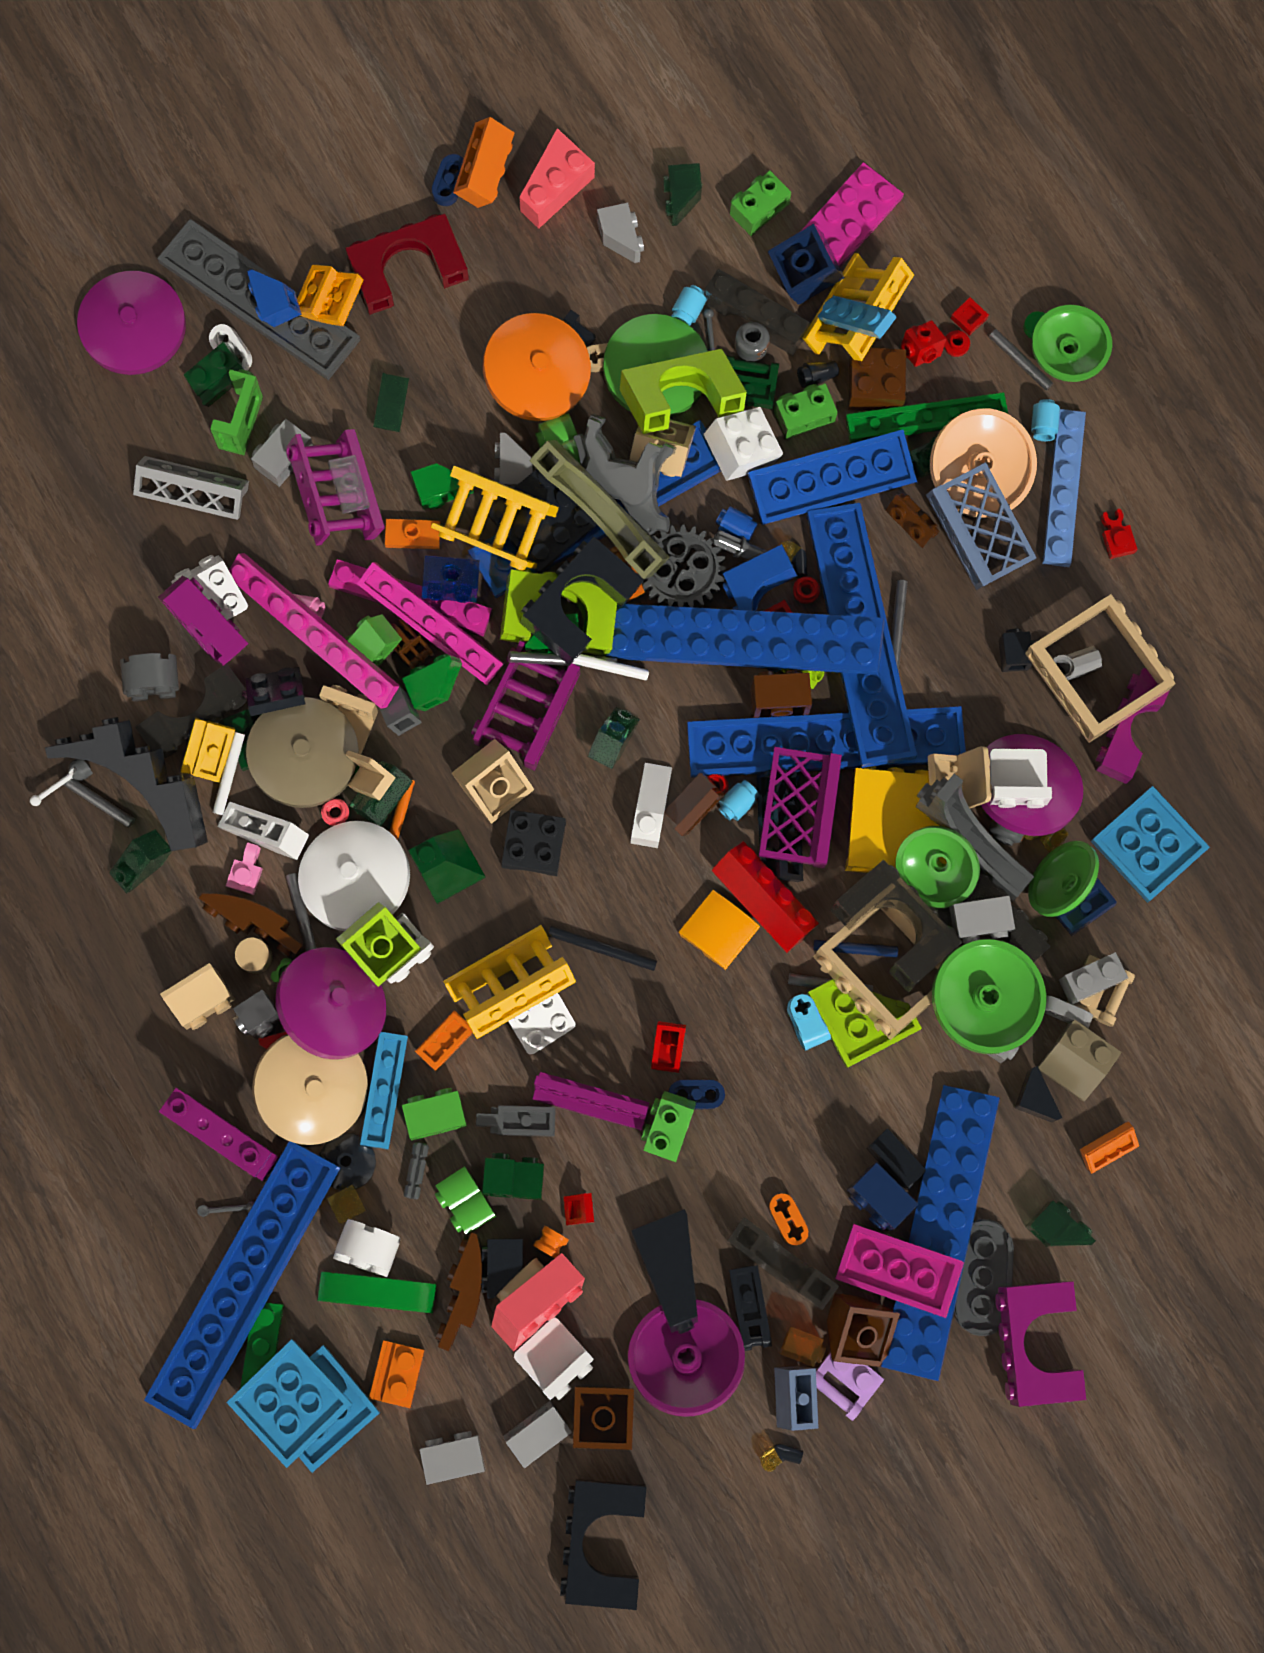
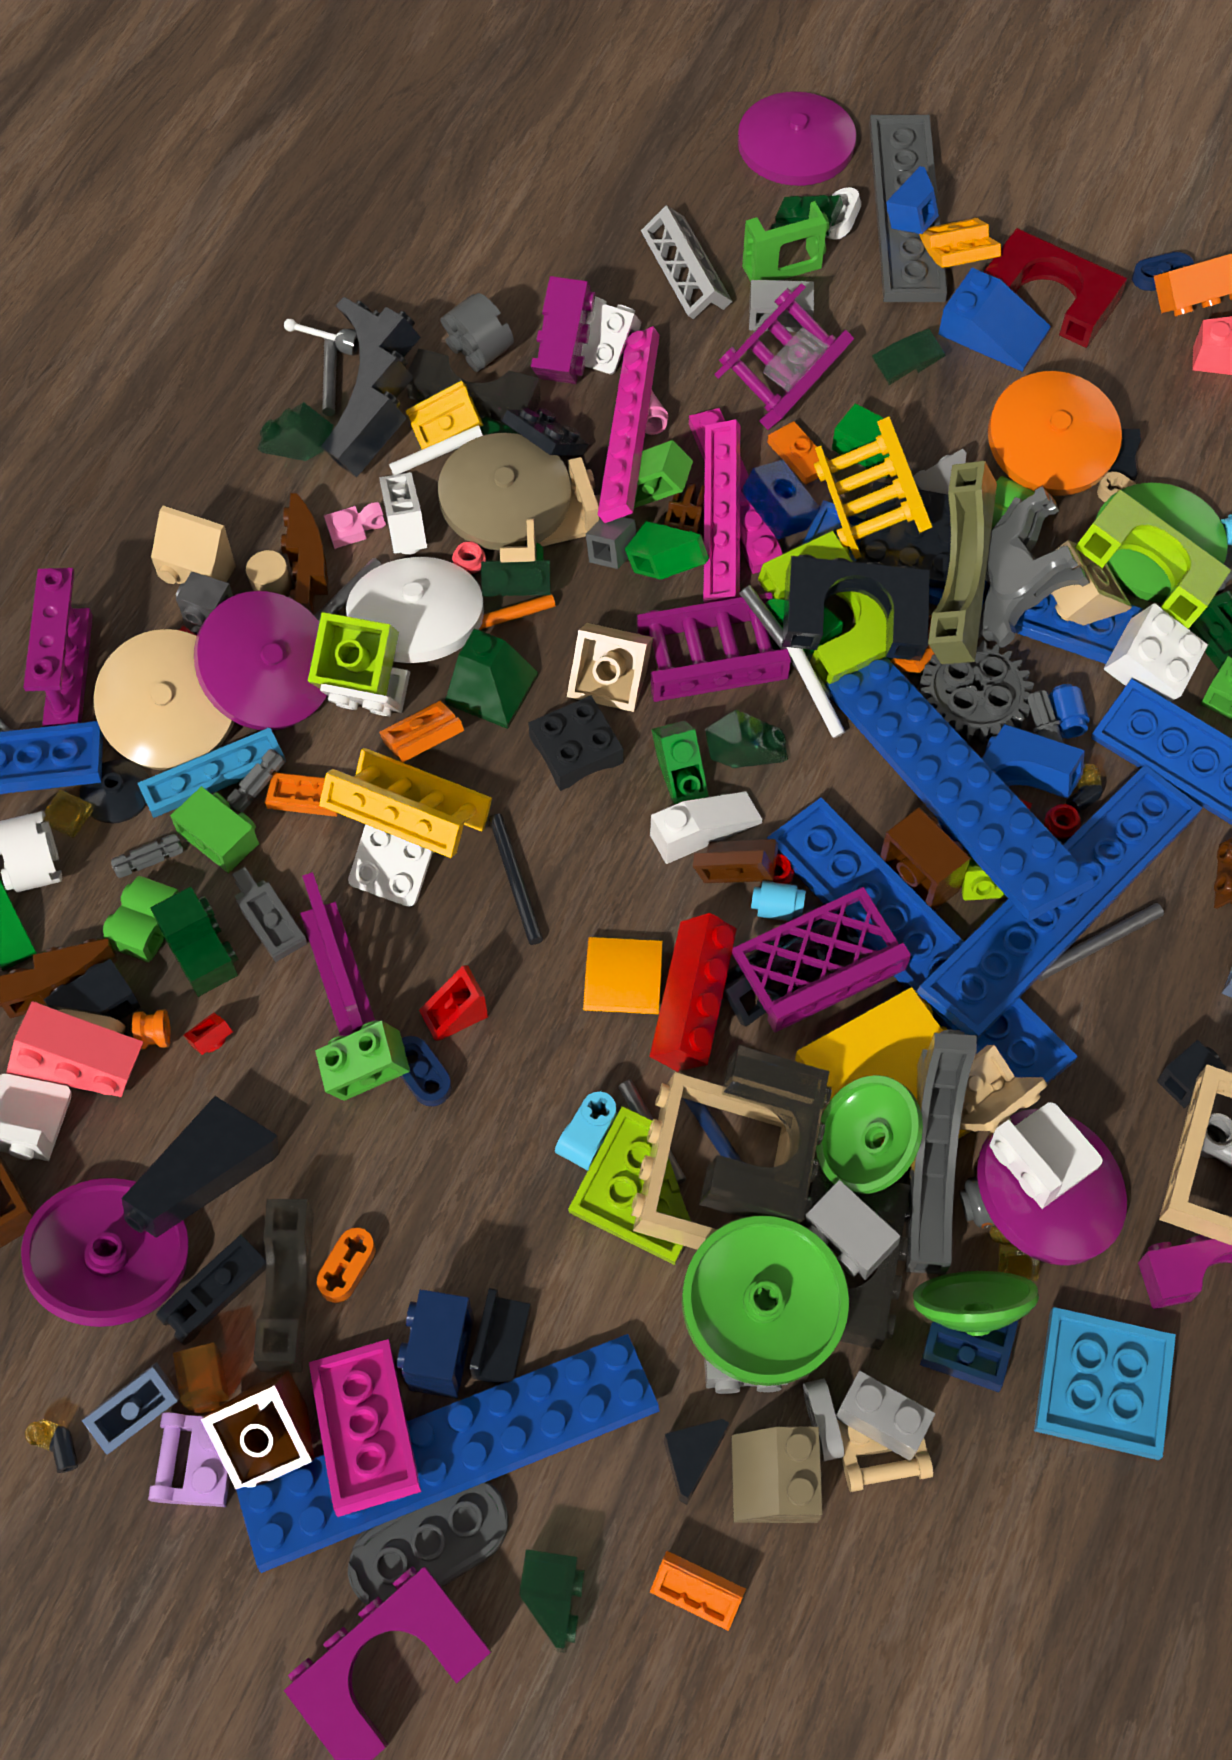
camera: 60 degrees right, 15 degrees down
(405, 324) = (993, 321): none -> blue slope
(413, 1065) = (256, 780): none -> dark grey axle
(455, 935) = (421, 731): none -> orange plate
(596, 788) = (680, 761): none -> green slope

